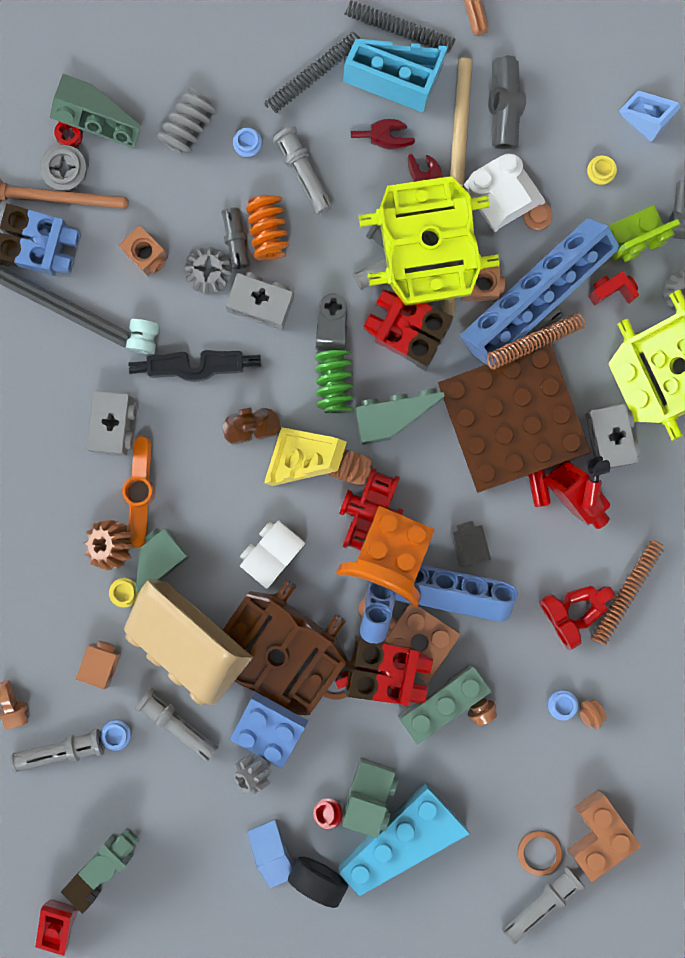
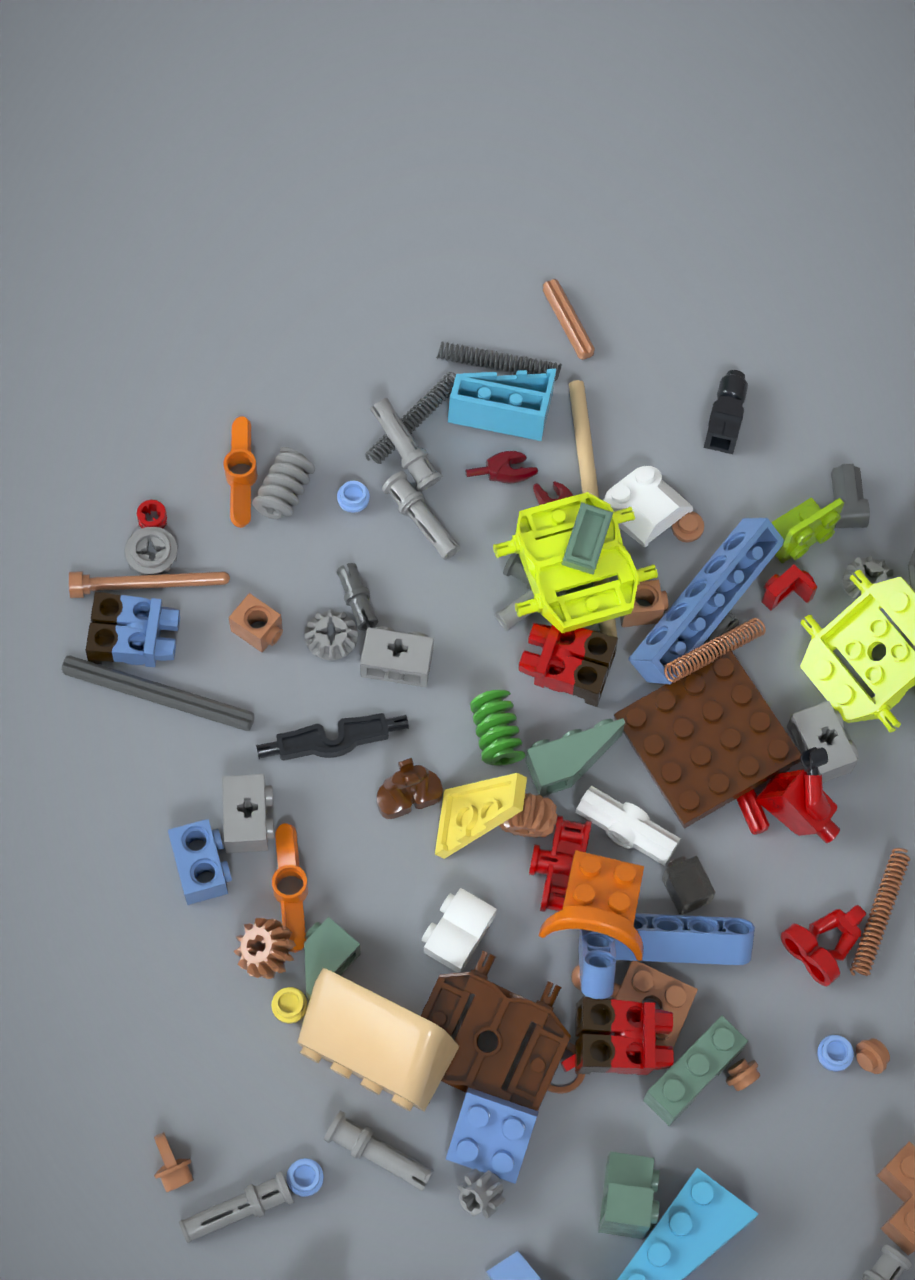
camera: 15 degrees left, 20 degrees down
(57, 461) = (193, 863): none -> medium blue brick
(90, 110) = (178, 487): sand green slope -> none
(98, 665) = (273, 1092): nougat brick -> none
(142, 336) = (268, 713): light aqua wheel -> none
(150, 116) = (240, 483): none -> orange piece
(265, 227) = (391, 579): orange piece -> none
(305, 113) = (412, 456): none -> light grey pin
(328, 813) = (582, 1229): plate -> none
(332, 328) = (482, 671): dark grey piece -> none
(430, 484) = (627, 825): none -> white piece
(441, 224) = (587, 538): none -> sand green tile
(506, 102) = (629, 418): dark grey piece -> none
(536, 834) = (829, 1251): nougat piece -> none
(596, 110) = (727, 413): none -> black piece
(601, 170) = (747, 471): light yellow plate -> none
(649, 113) = (786, 408): light blue slope -> none

